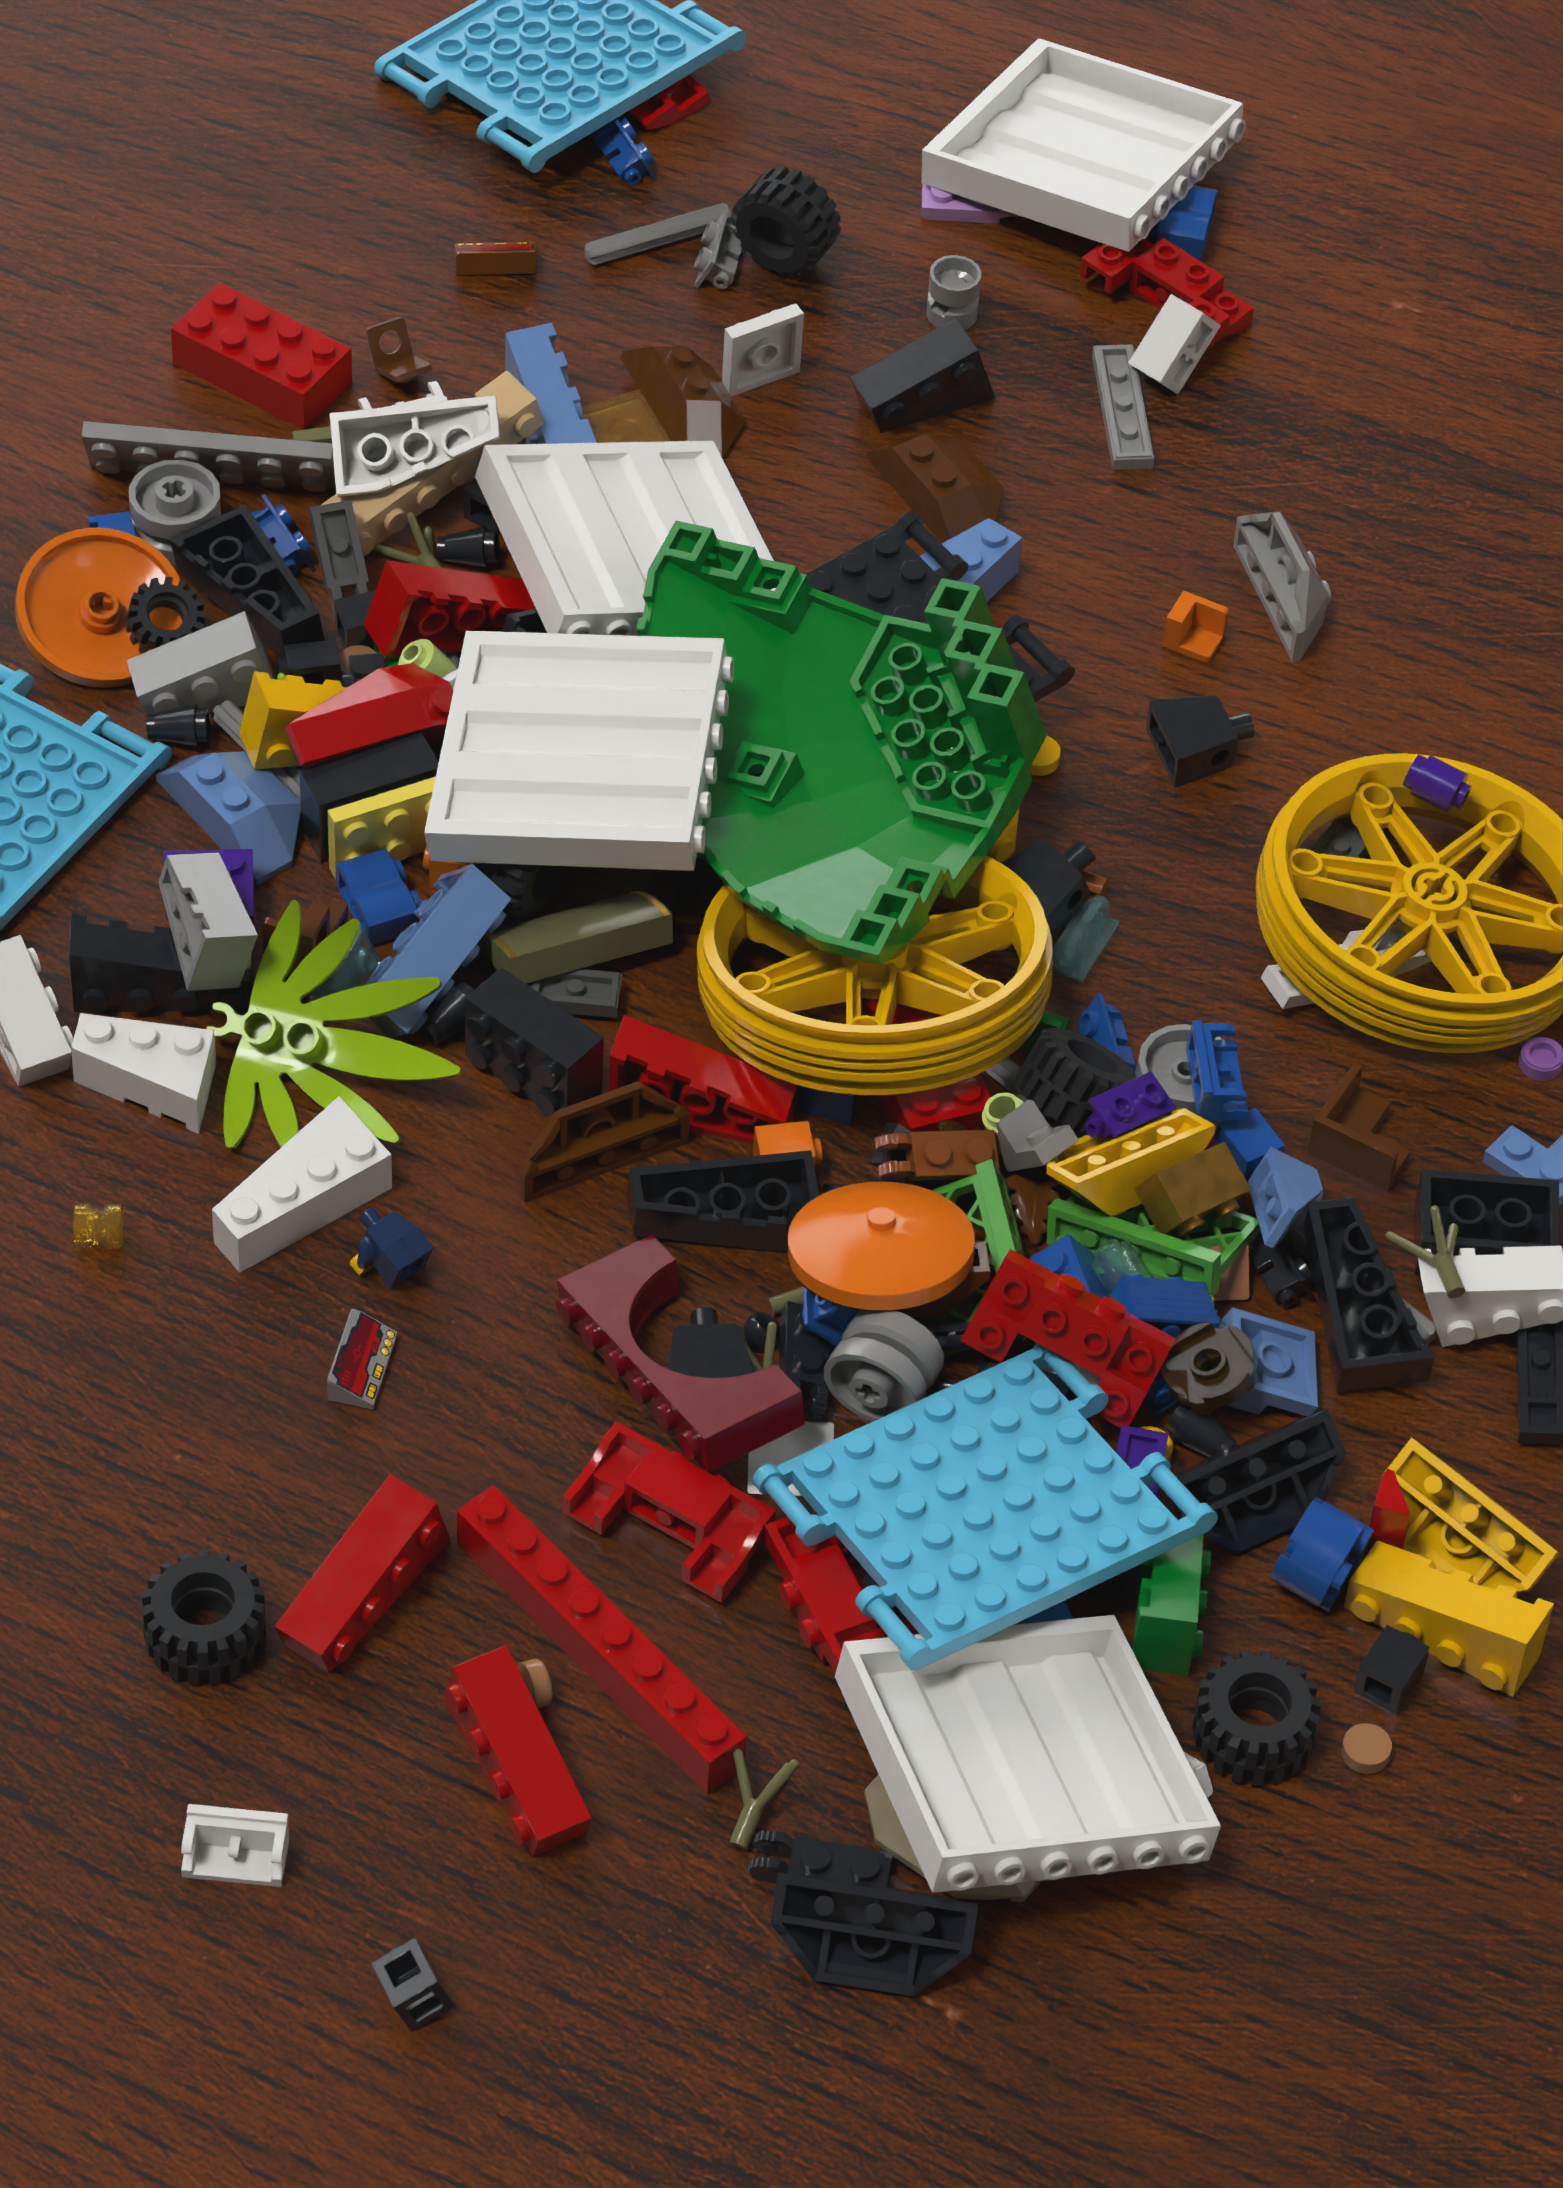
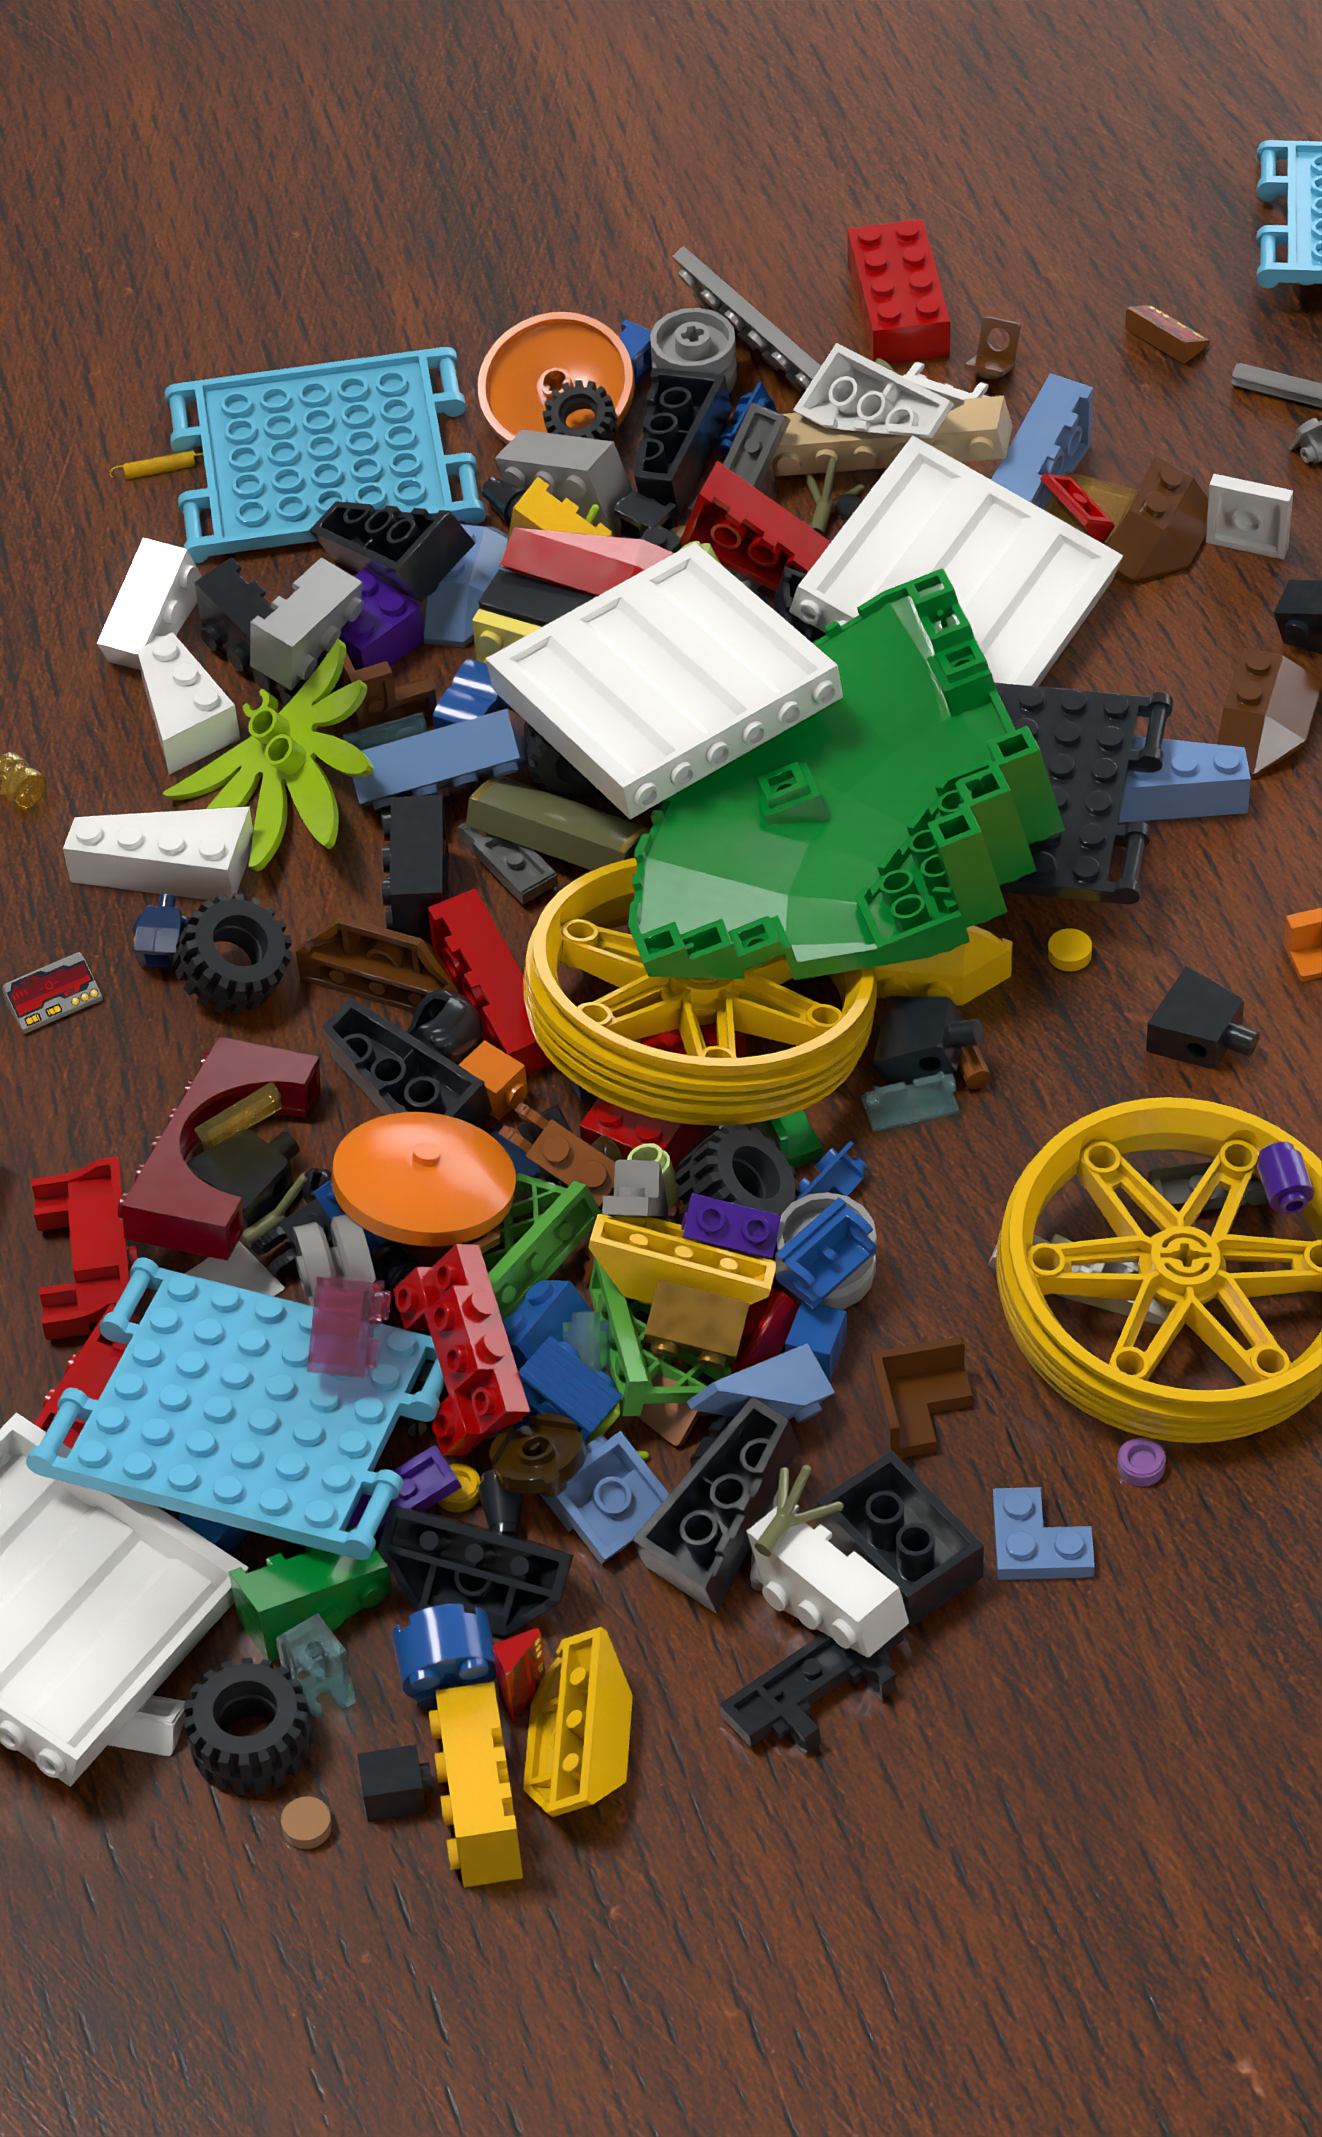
camera: 55 degrees right, 0 degrees up
(195, 809) = (402, 548): none -> black wedge
(481, 1212) = (250, 929): none -> black tyre
(631, 427) = (1079, 506): none -> red slope
(680, 1313) = (239, 1116): none -> clear yellow tile
(711, 1134) = (448, 1024): none -> black piece
(1001, 1374) = (344, 1325): none -> clear pink brick
(1257, 1622) = (317, 1662): none -> clear light blue hinge

